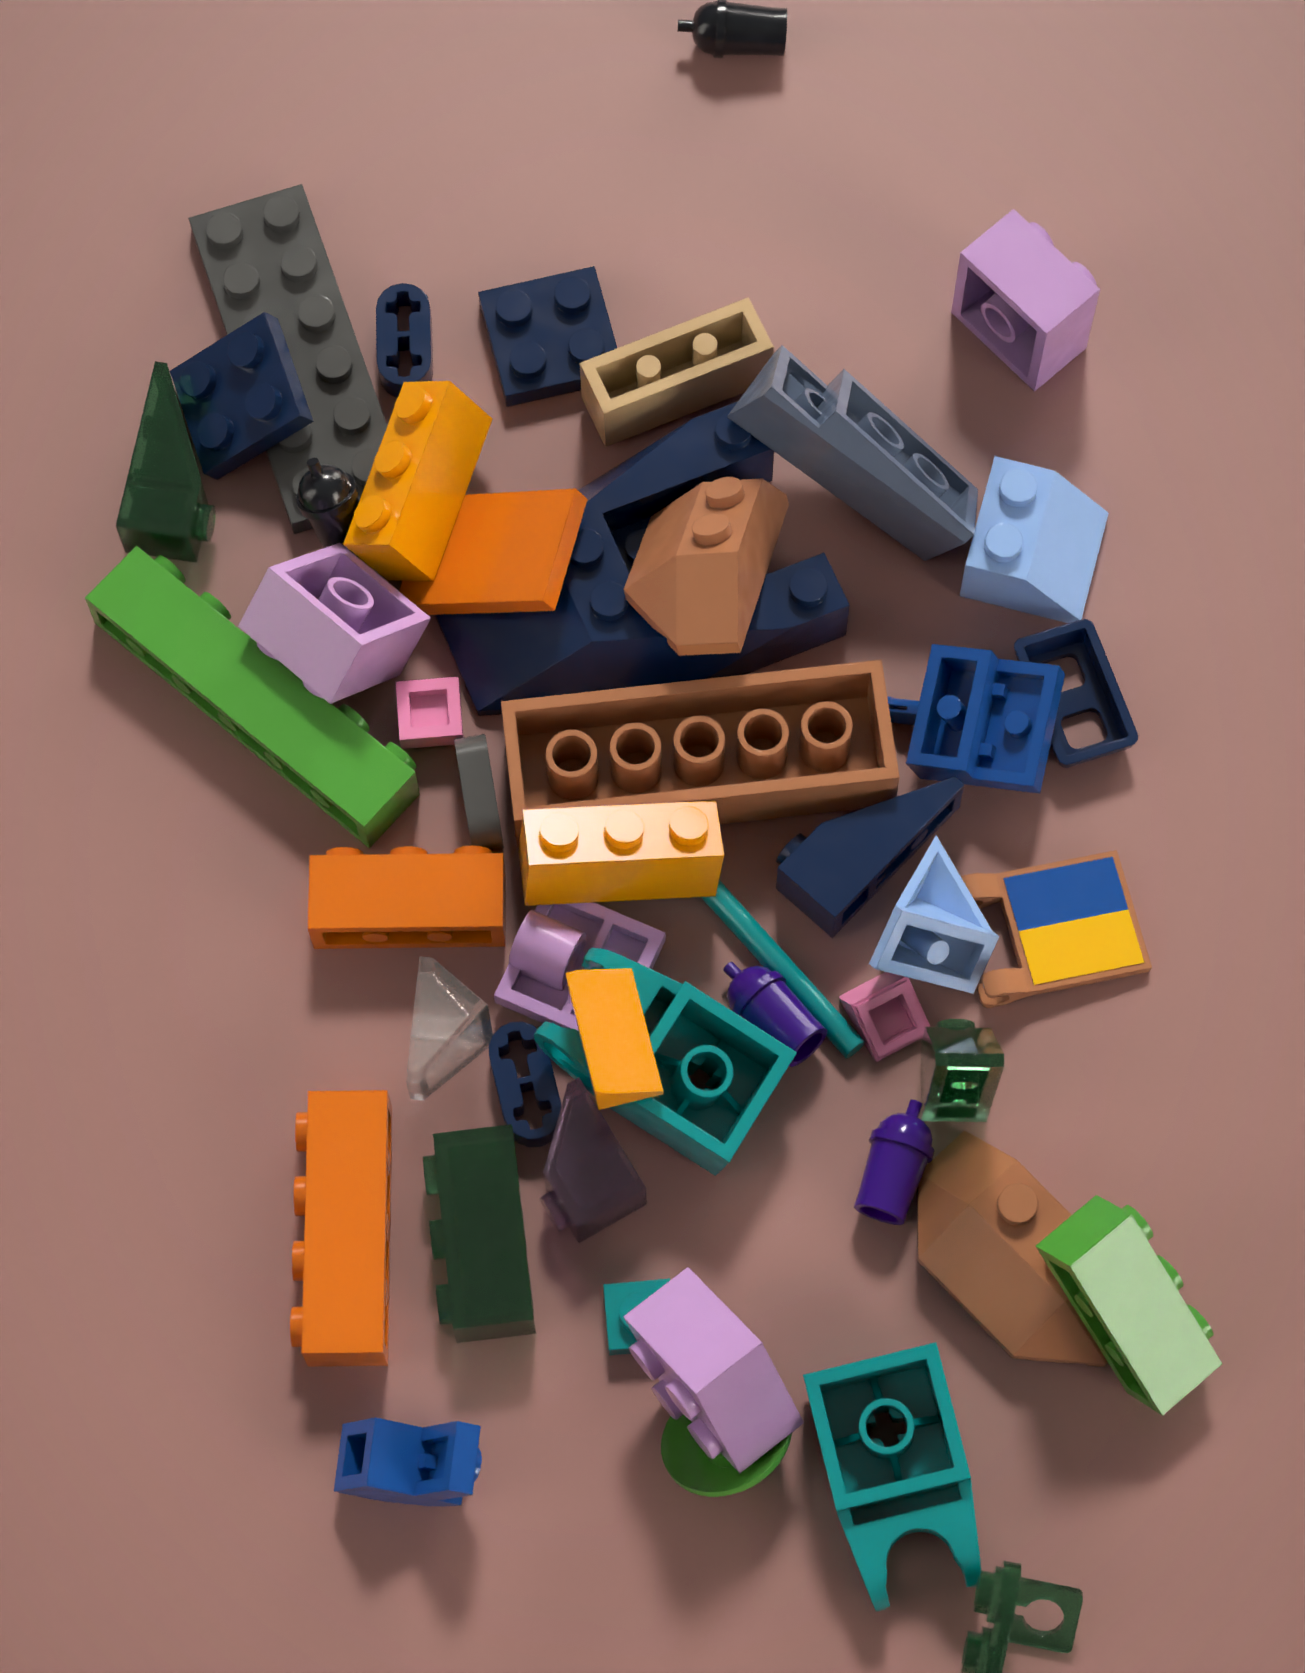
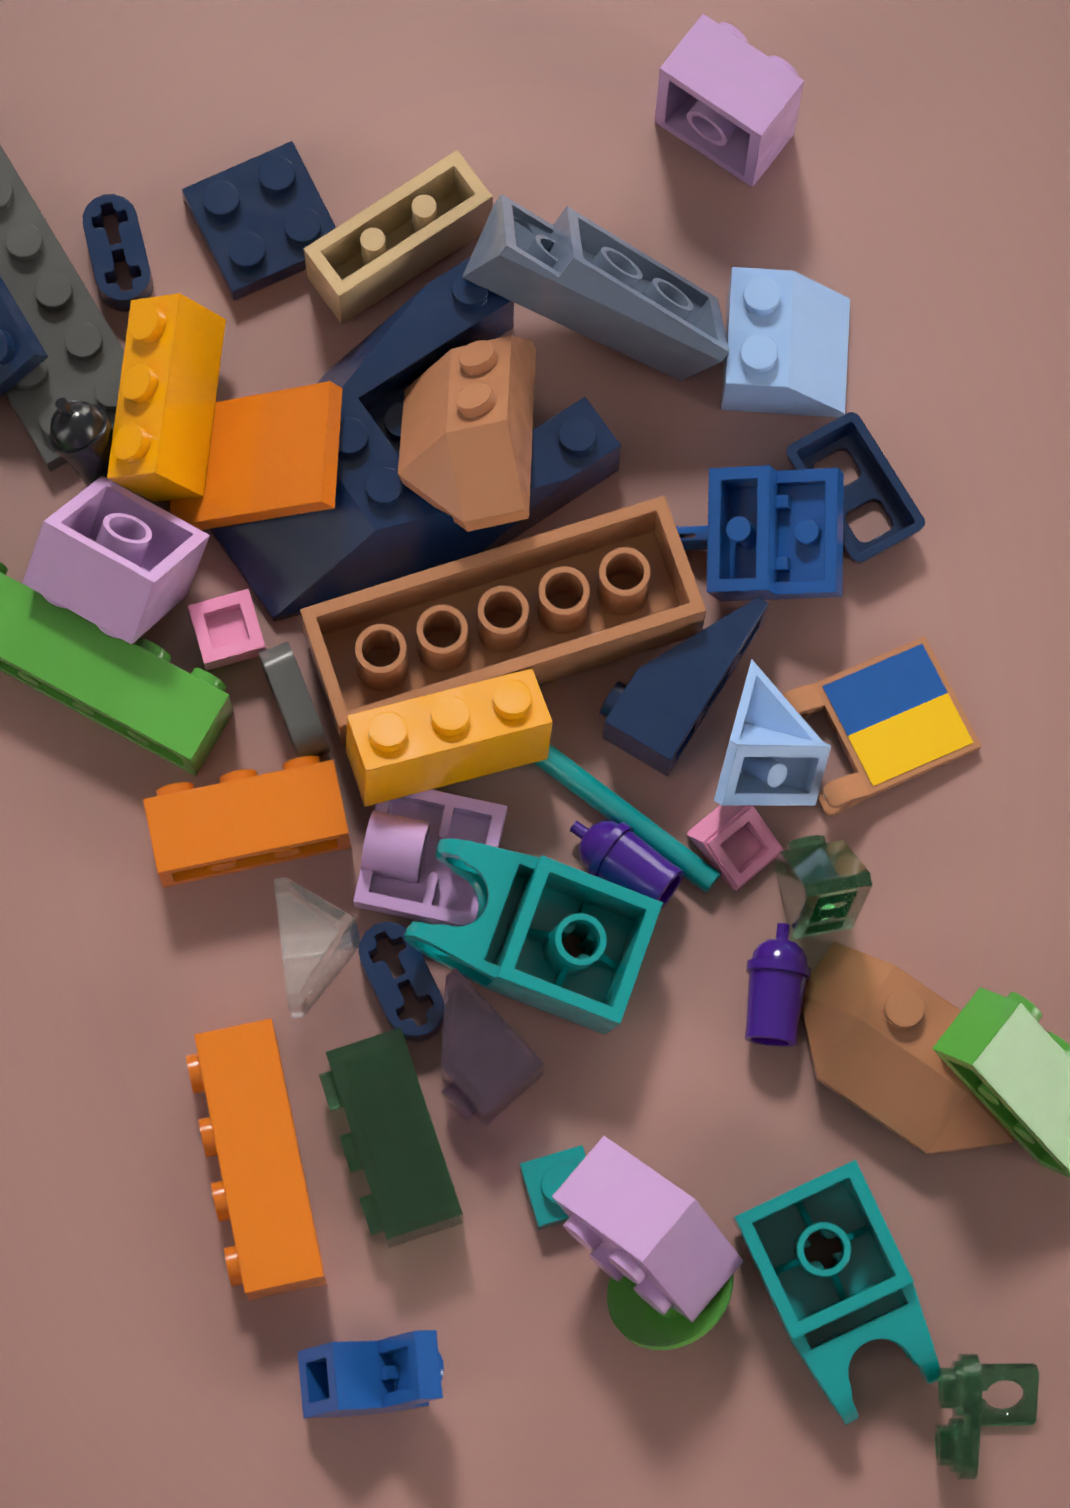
camera: 15 degrees left, 5 degrees up
(614, 1036) = (485, 924): light orange slope -> none

